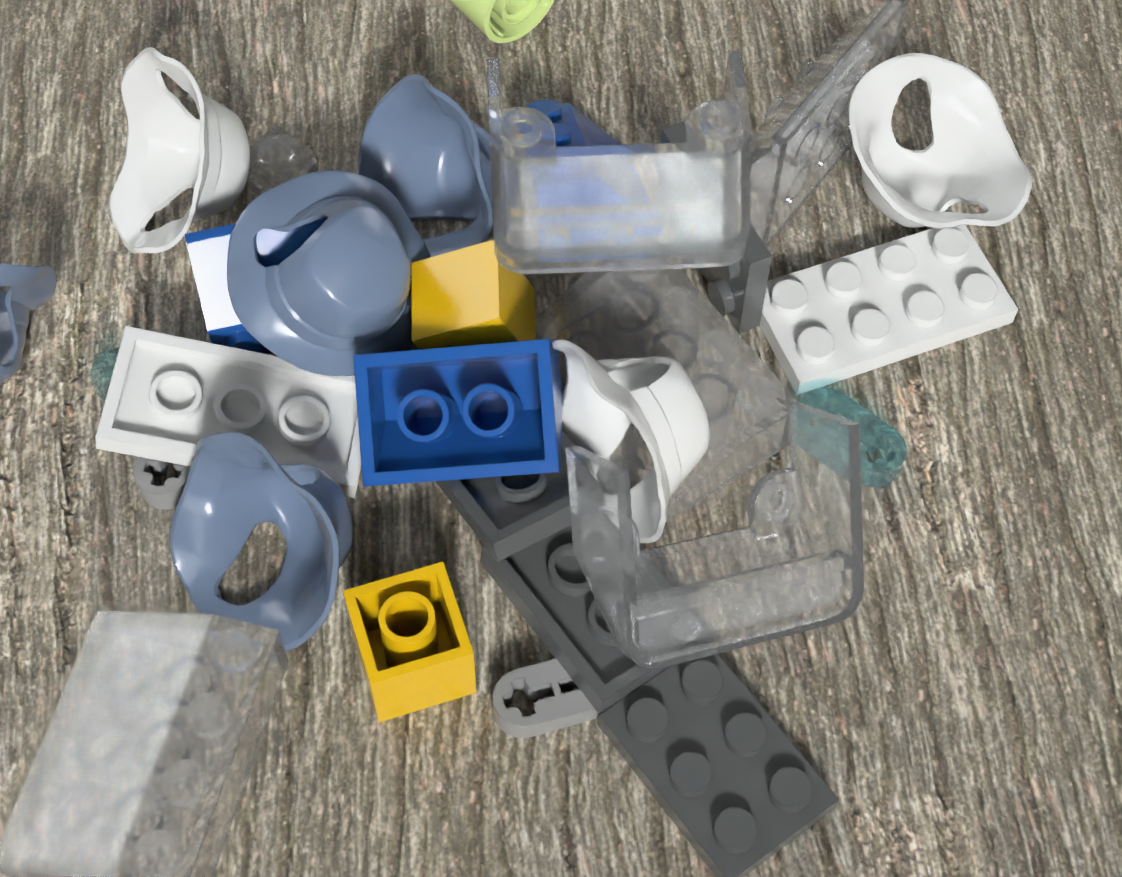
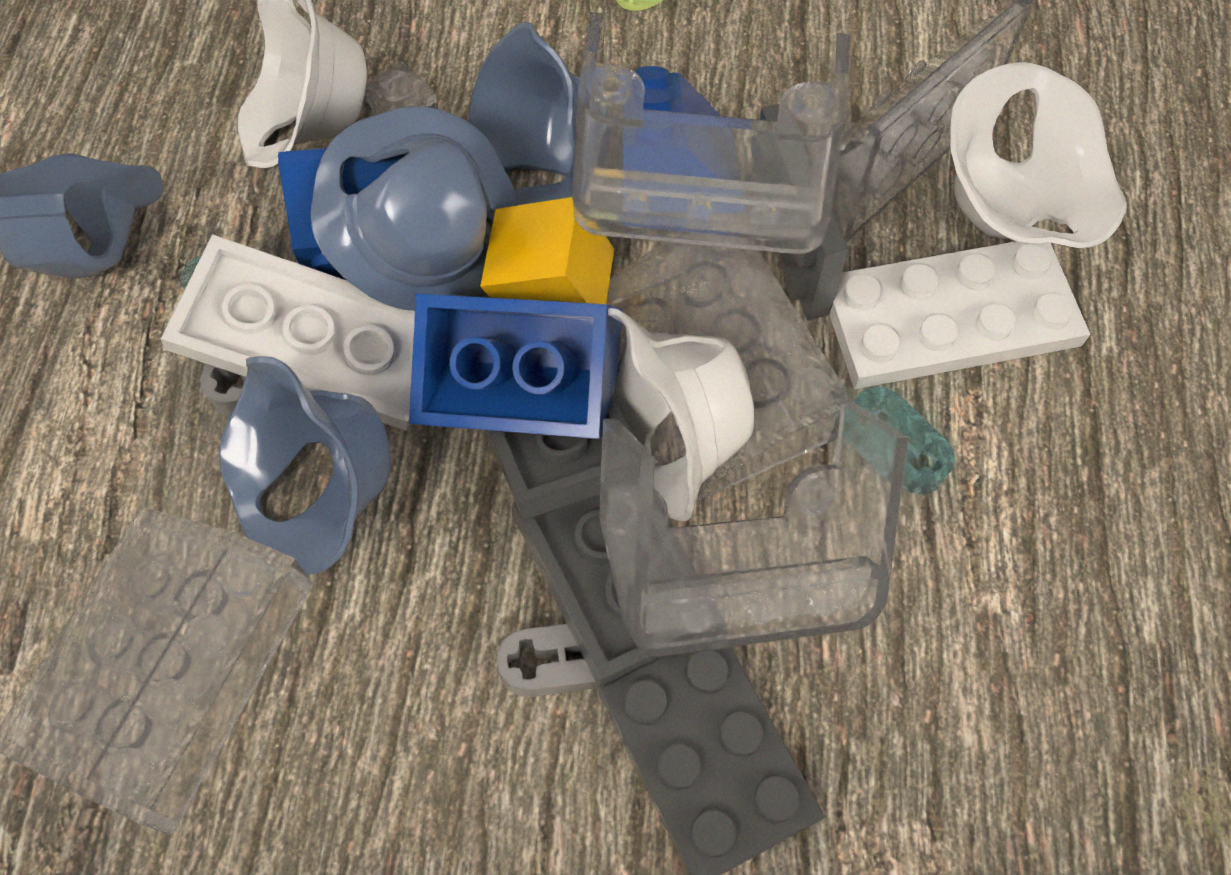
camera: 10 degrees right, 5 degrees up
(411, 641) = (423, 586): yellow head -> none

